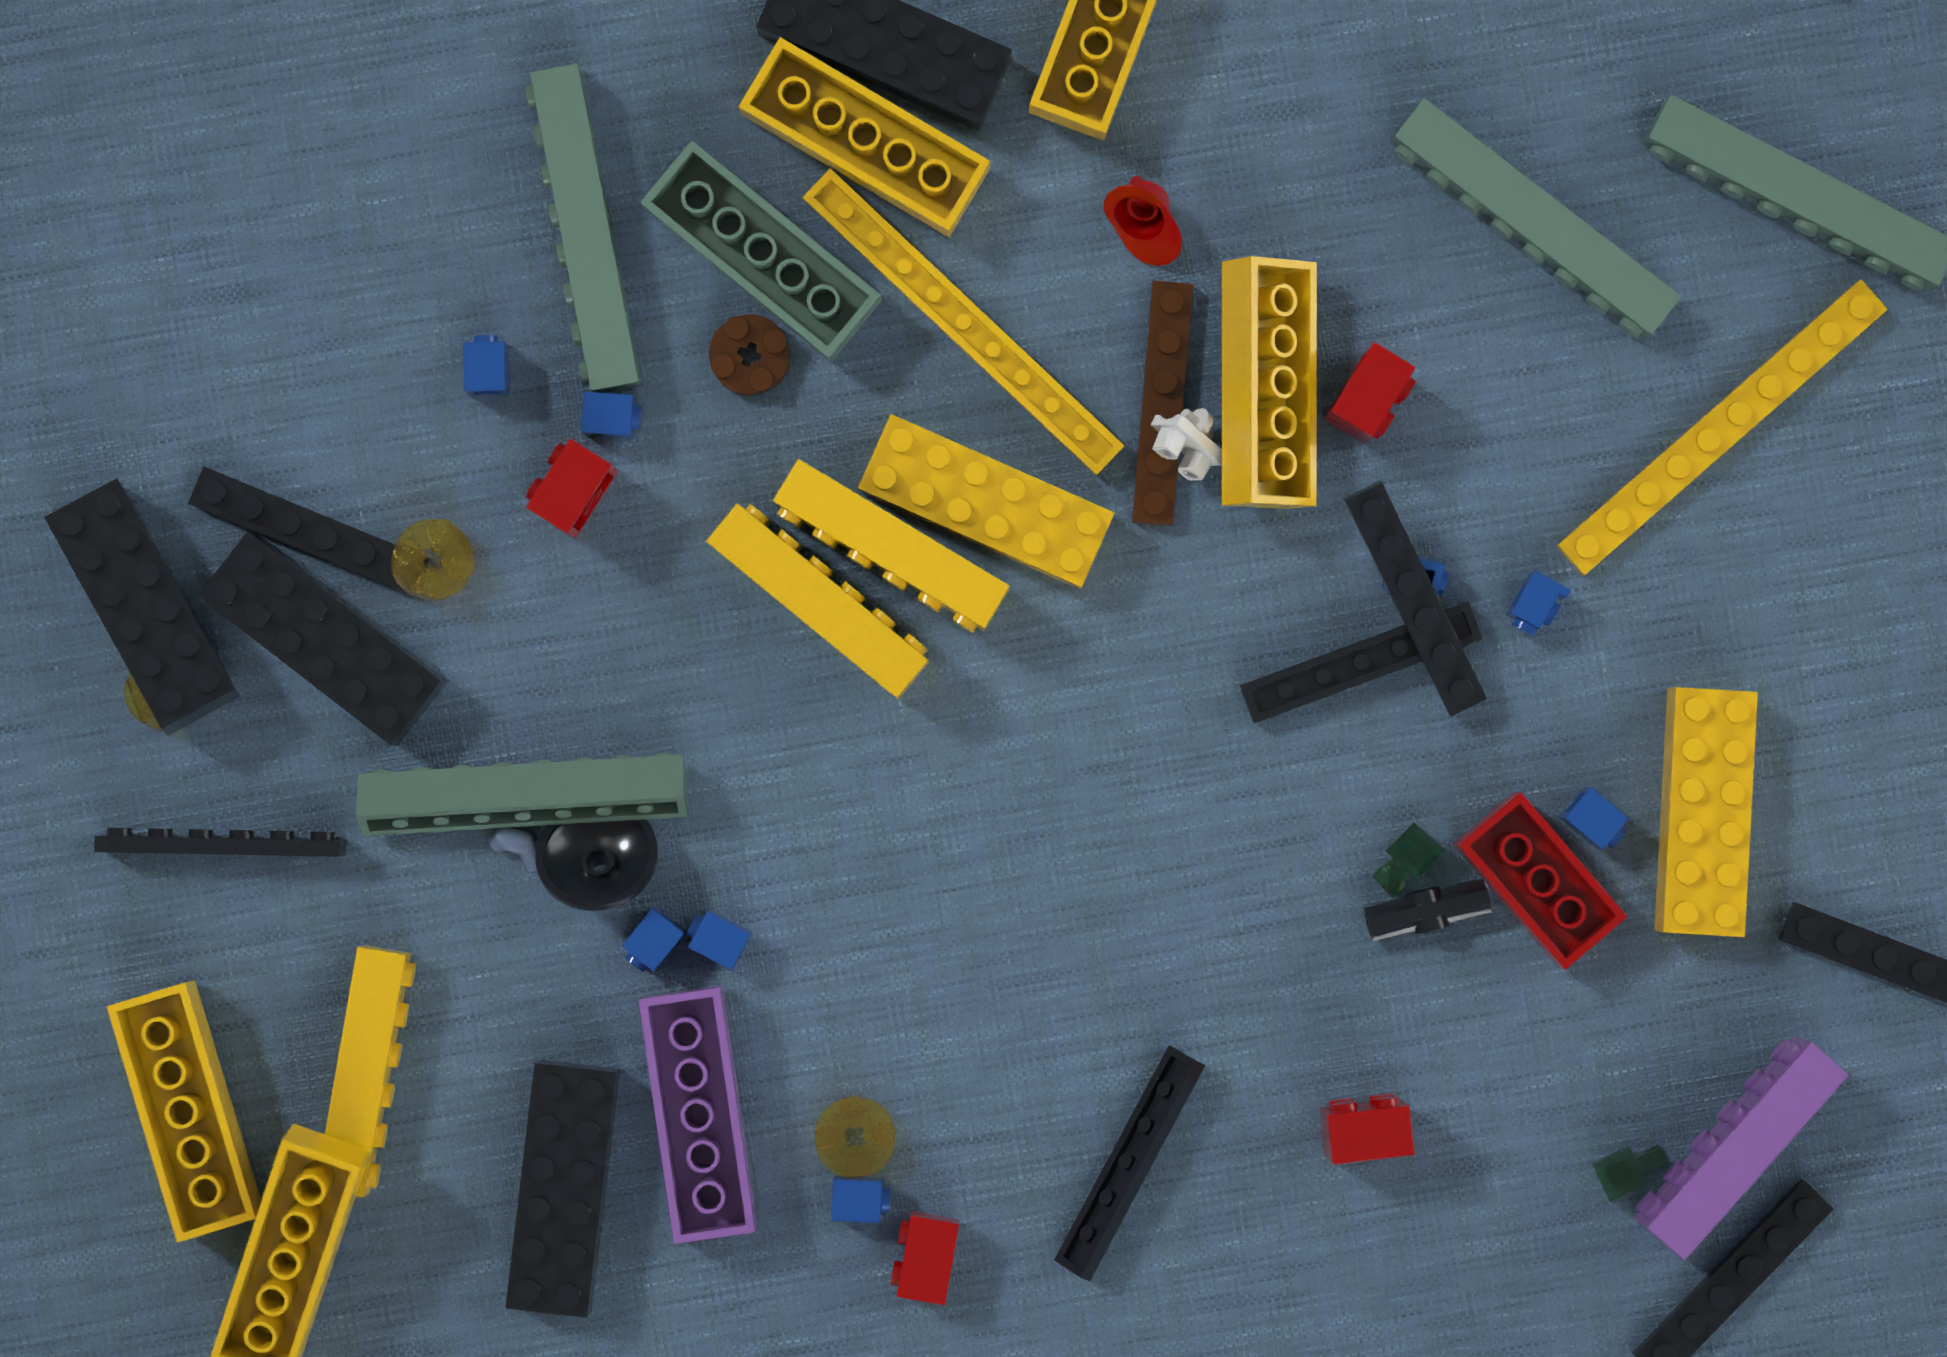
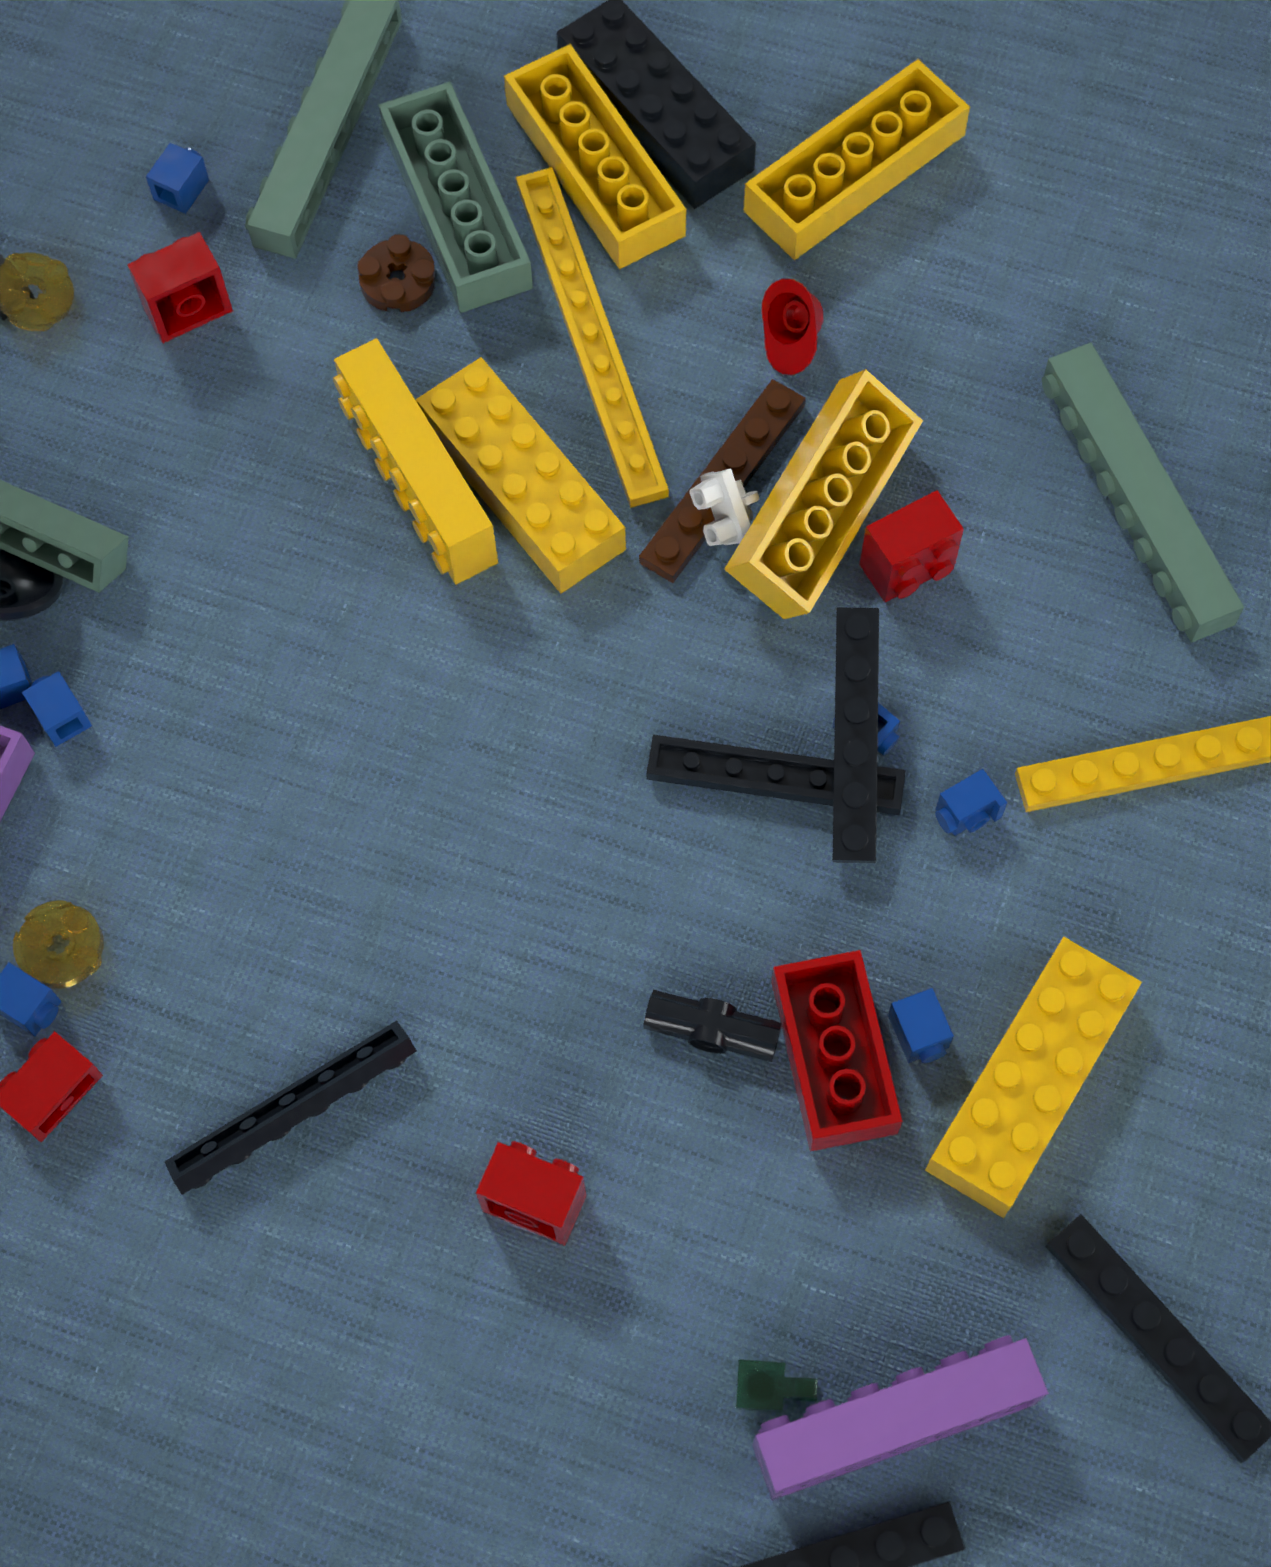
camera: 30 degrees right, 20 degrees down
(610, 415) = (251, 258): blue brick -> none
(817, 600) = (327, 473): yellow brick -> none
(1410, 855) = (723, 967): clear green plate -> none

